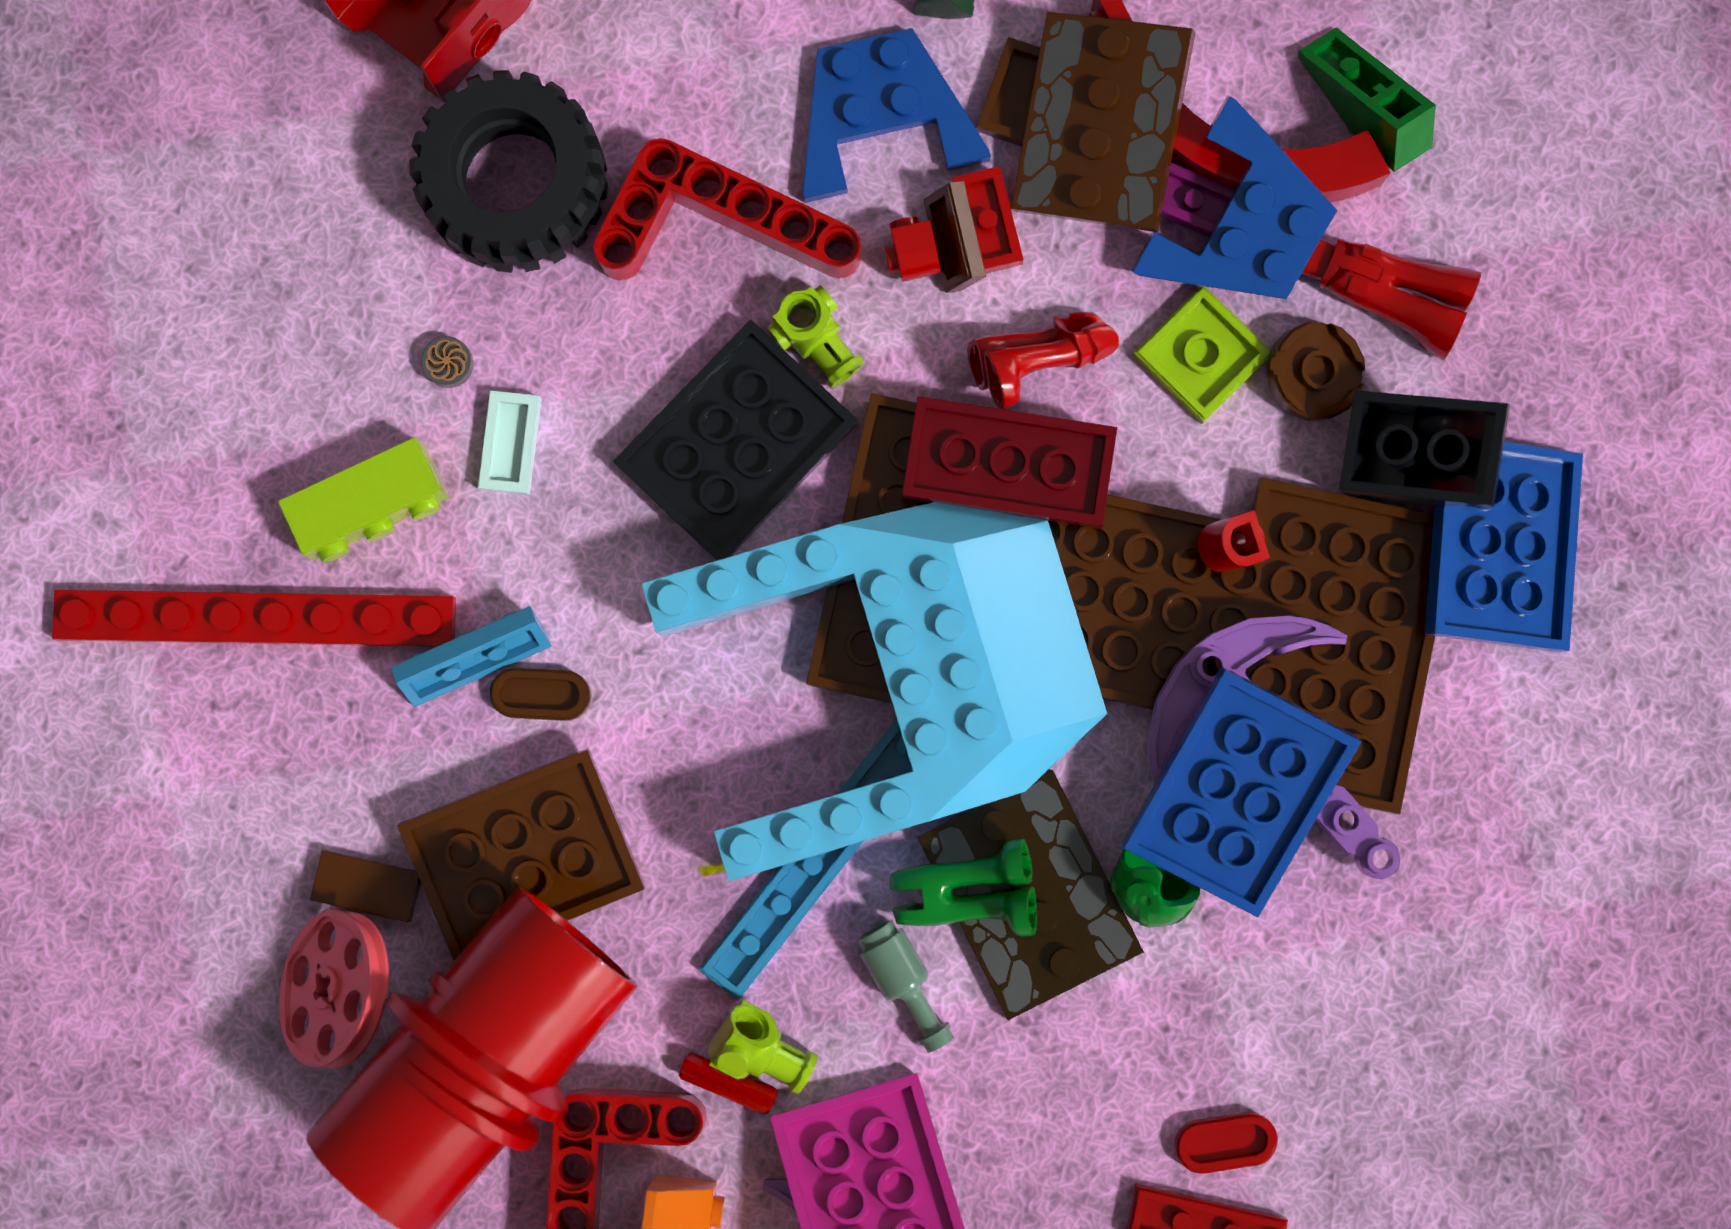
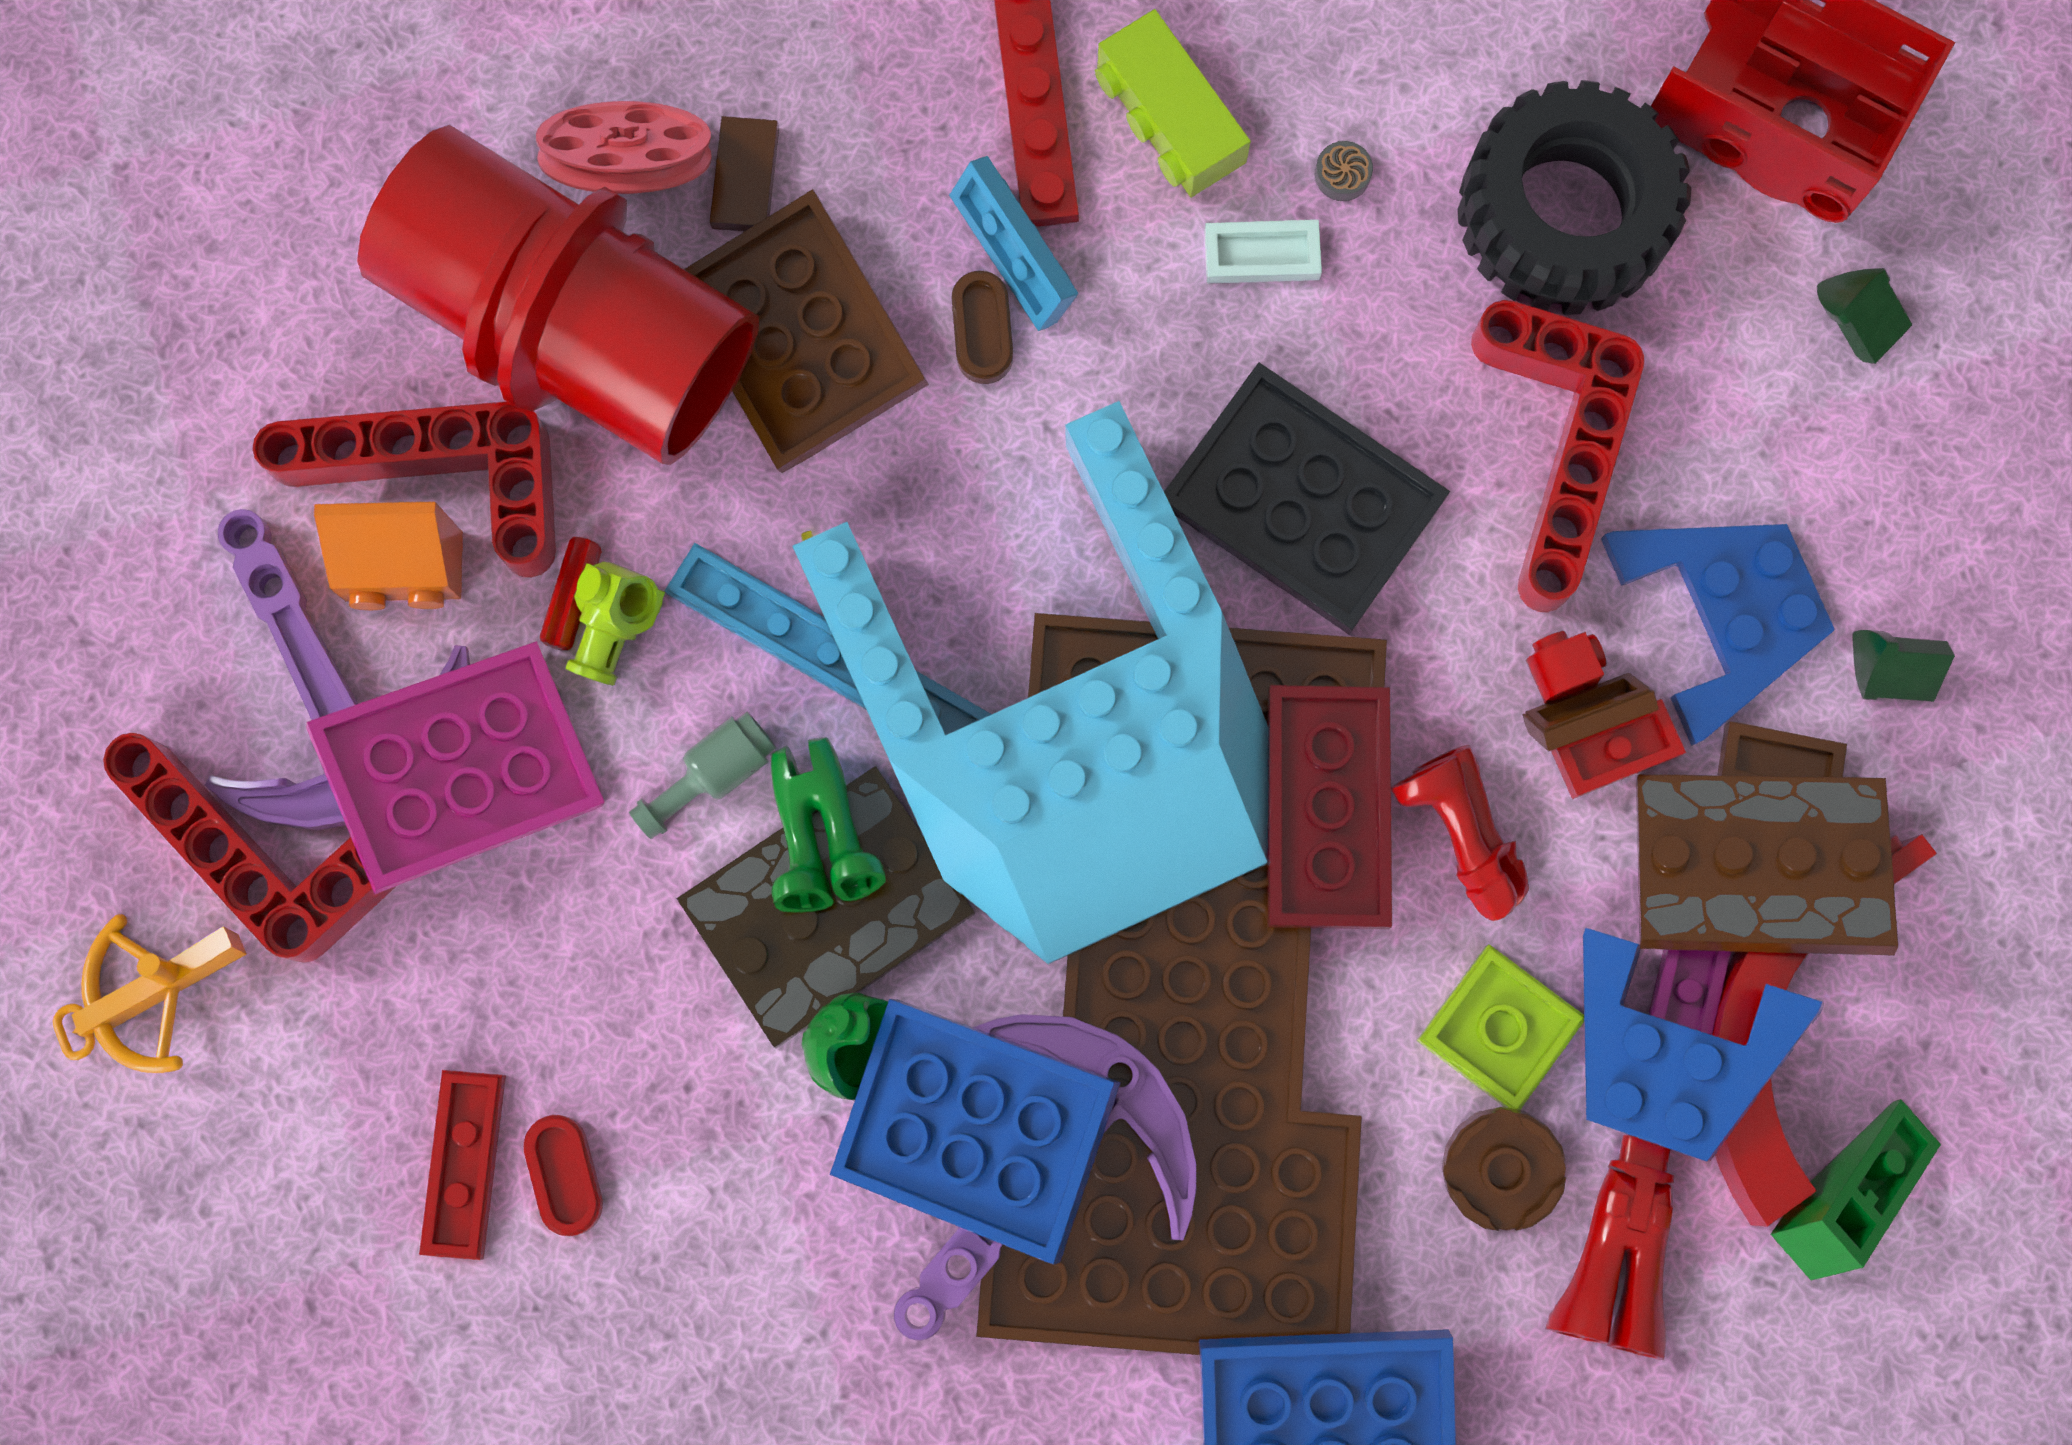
camera: 80 degrees right, 5 degrees down
(818, 337) = (1442, 570): lime connector -> none
(1233, 543) = (1273, 1084): red plate -> none
(1423, 450) = (1425, 1302): black slope -> none

